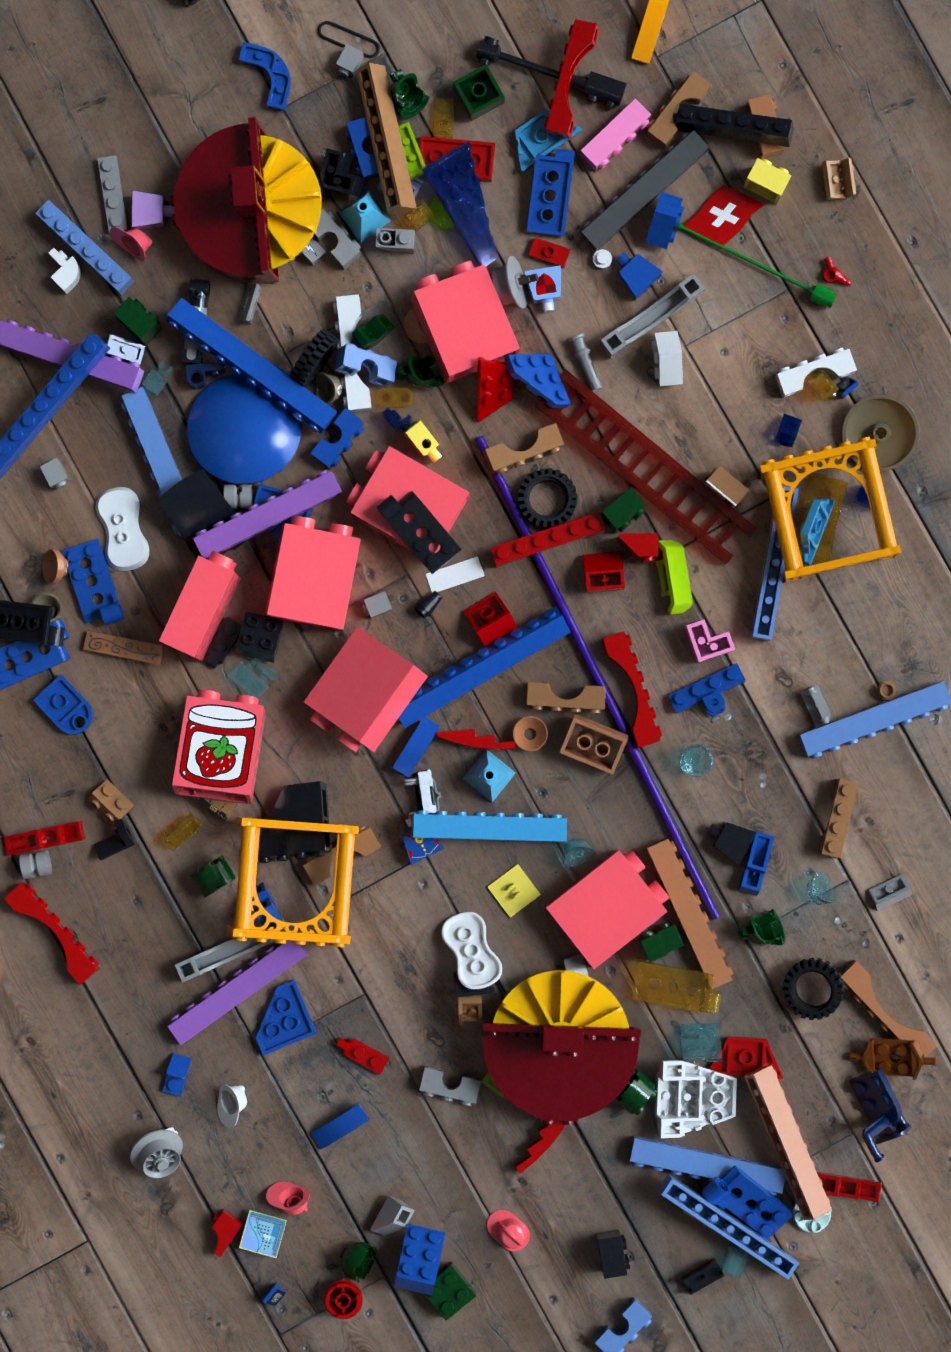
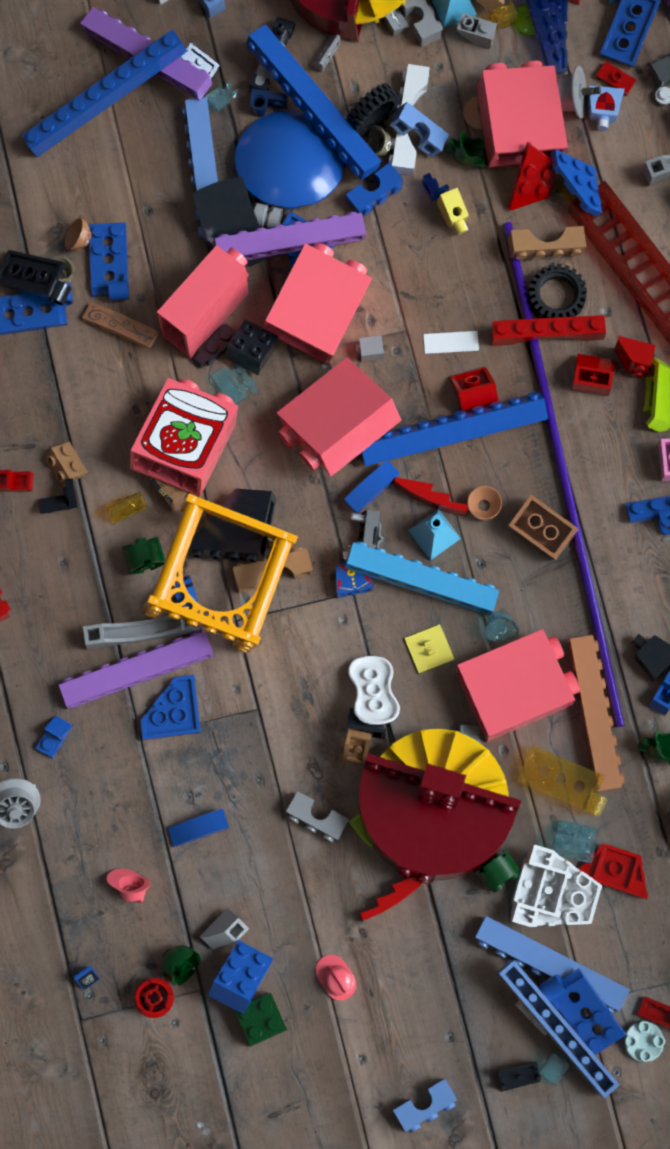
camera: 15 degrees right, 10 degrees down
(55, 474) = (102, 154): light grey brick -> none
(64, 704) = (49, 363): blue plate -> none
(125, 543) = (149, 234): white plate -> none
(137, 321) = (219, 38): dark green brick -> none
(226, 1227) = (58, 899): red arch -> none
(230, 1103) = (99, 775): white piece -> none
(262, 1234) = (93, 912): piece -> none
(363, 1054) = (240, 766): red hinge -> none
(373, 331) = (435, 104): dark green brick -> none
(394, 397) = (438, 167): clear yellow plate -> none
(394, 515) = (410, 261): black hinge -> none
(398, 476) = (425, 262): coral brick -> none
(428, 604) = (418, 361): black cone -> none
(541, 695) = (551, 484): medium nougat arch -> none
(582, 353) = (624, 174): light grey pin -> none
(612, 1256) = (433, 1025): black brick -> none
(619, 651) = (590, 452): red arch -> none
(623, 510) = (627, 320): dark green brick -> none
(660, 942) = (559, 733): dark green brick -> none
(696, 761) = (638, 569): clear light blue helmet -> none
(788, 1142) = (638, 961): brick -> none

